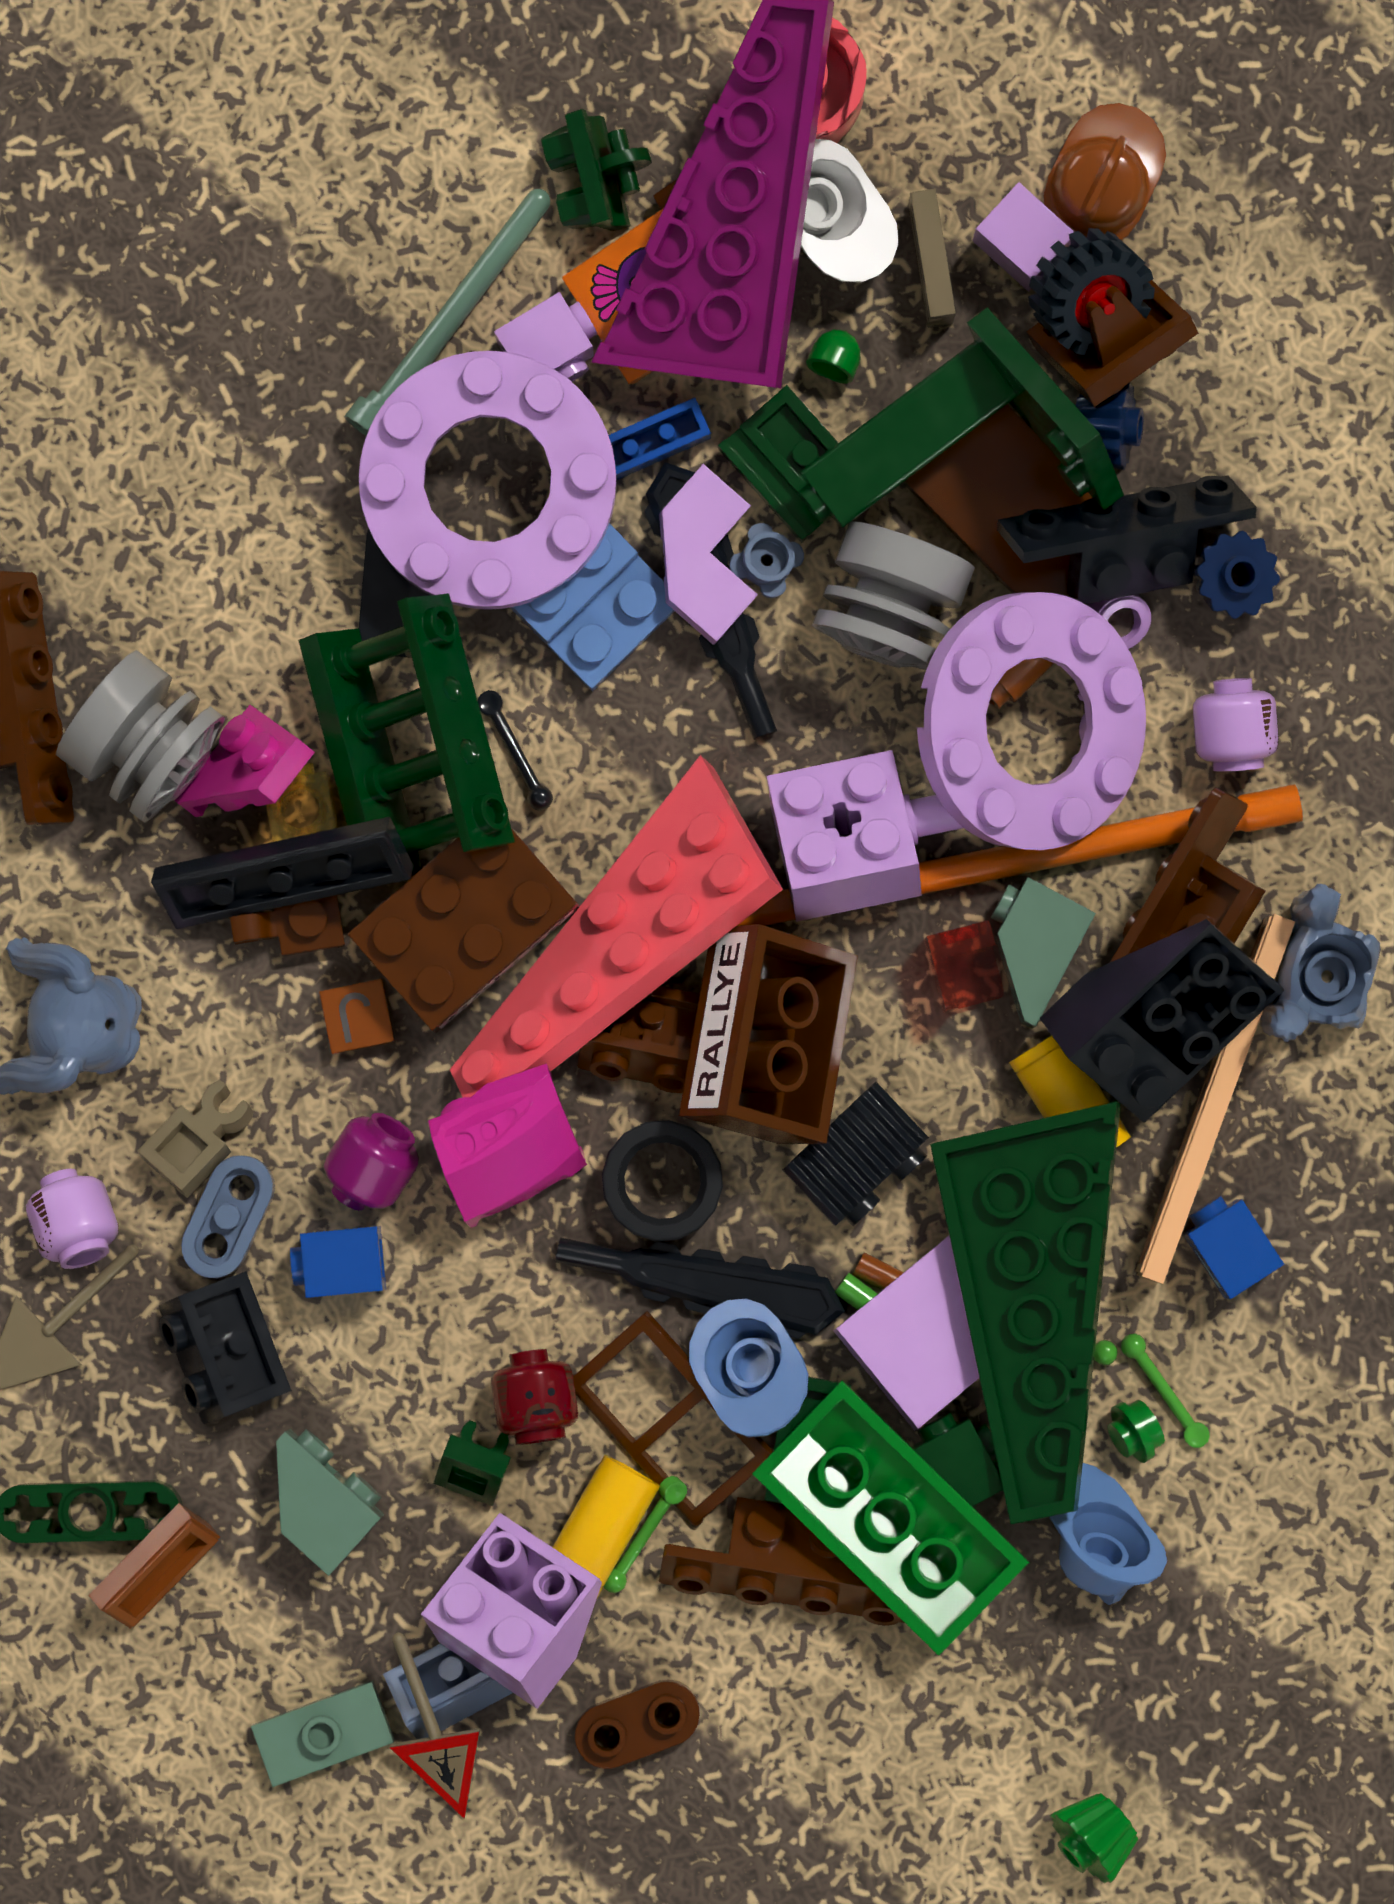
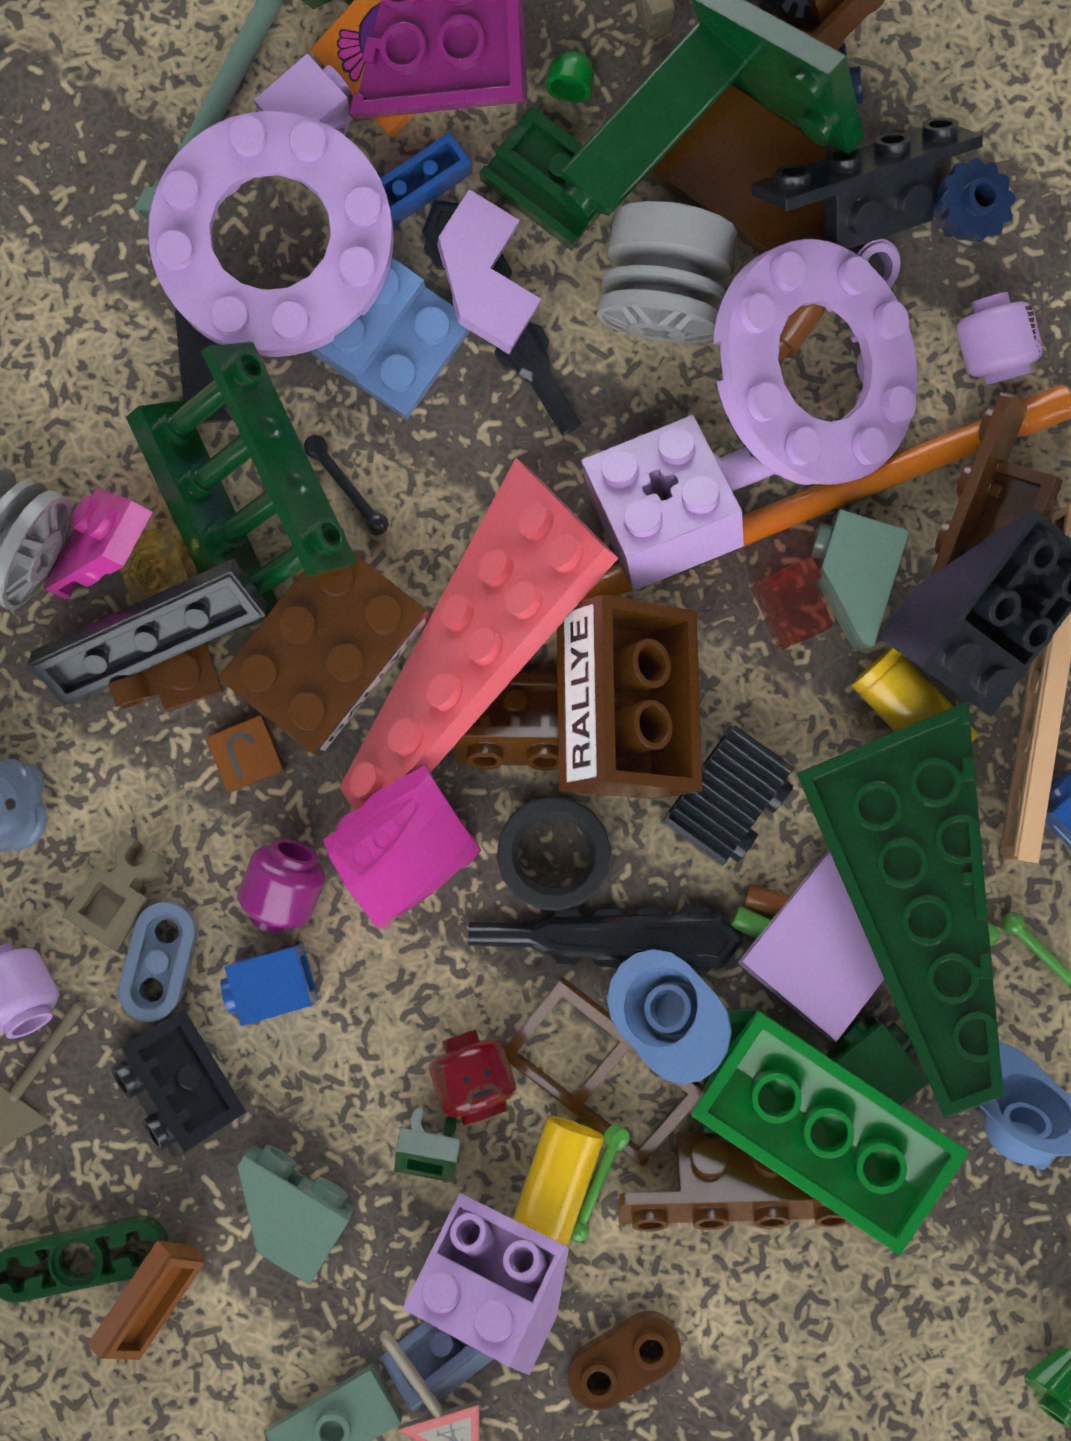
camera: 15 degrees left, 0 degrees up
(784, 557) = (545, 254): sand blue plate -> none
(1135, 1430) = (1032, 1002): green plate -> none

